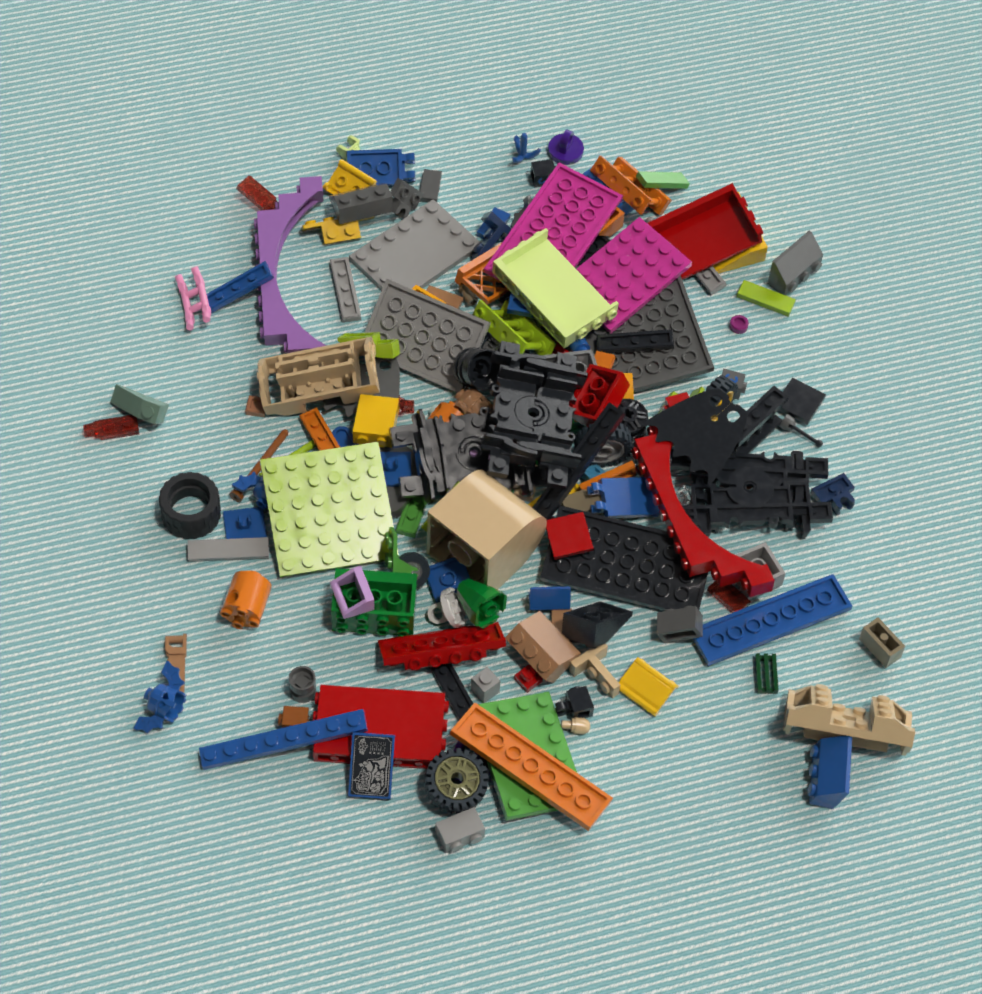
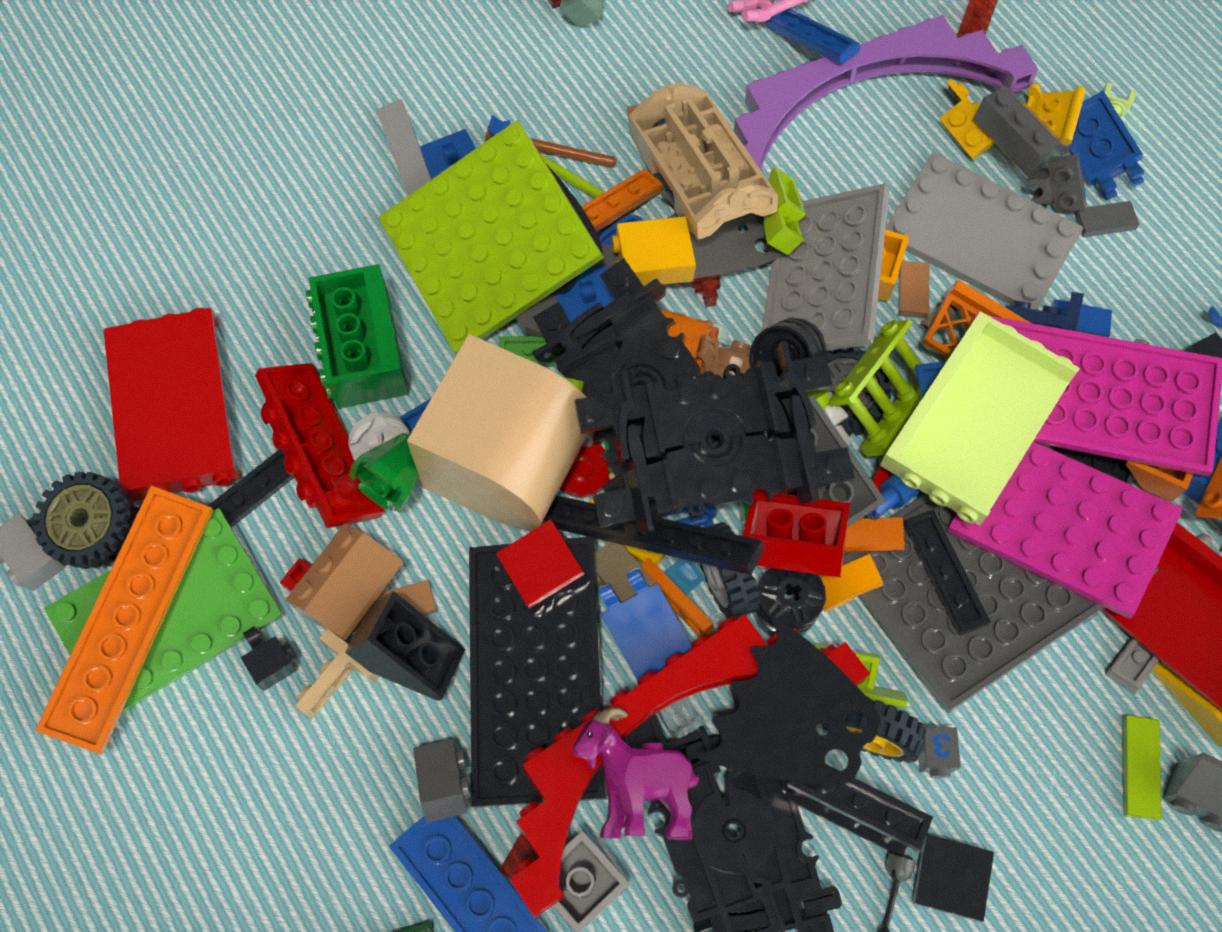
camera: 75 degrees right, 10 degrees up
(163, 700) = (150, 140): blue helmet -> none
(177, 655) = (224, 144): medium nougat piece -> none
(184, 486) = (449, 57): black tyre -> none
(246, 599) = (322, 184): orange cylinder -> none
(283, 739) = (118, 292): blue plate -> none
(293, 716) = (158, 296): dark orange brick -> none
(302, 684) = (212, 288): dark grey wheel -> none
(345, 289) = (877, 164): light grey tile -> none
(354, 575) = (343, 301): lavender tile -> none
(371, 765) = (97, 405): tile -> none
(406, 563) = (427, 348): plate -> none
(485, 685) = (267, 521): light grey brick -> none
(549, 598) = (438, 571): blue panel -> none
(576, 725) = (234, 671): tan cylinder -> none
(646, 686) = (326, 759): yellow piece -> none
(714, 512) = (637, 776): none -> magenta animal
(739, 324) = (1067, 734): magenta tile -> none

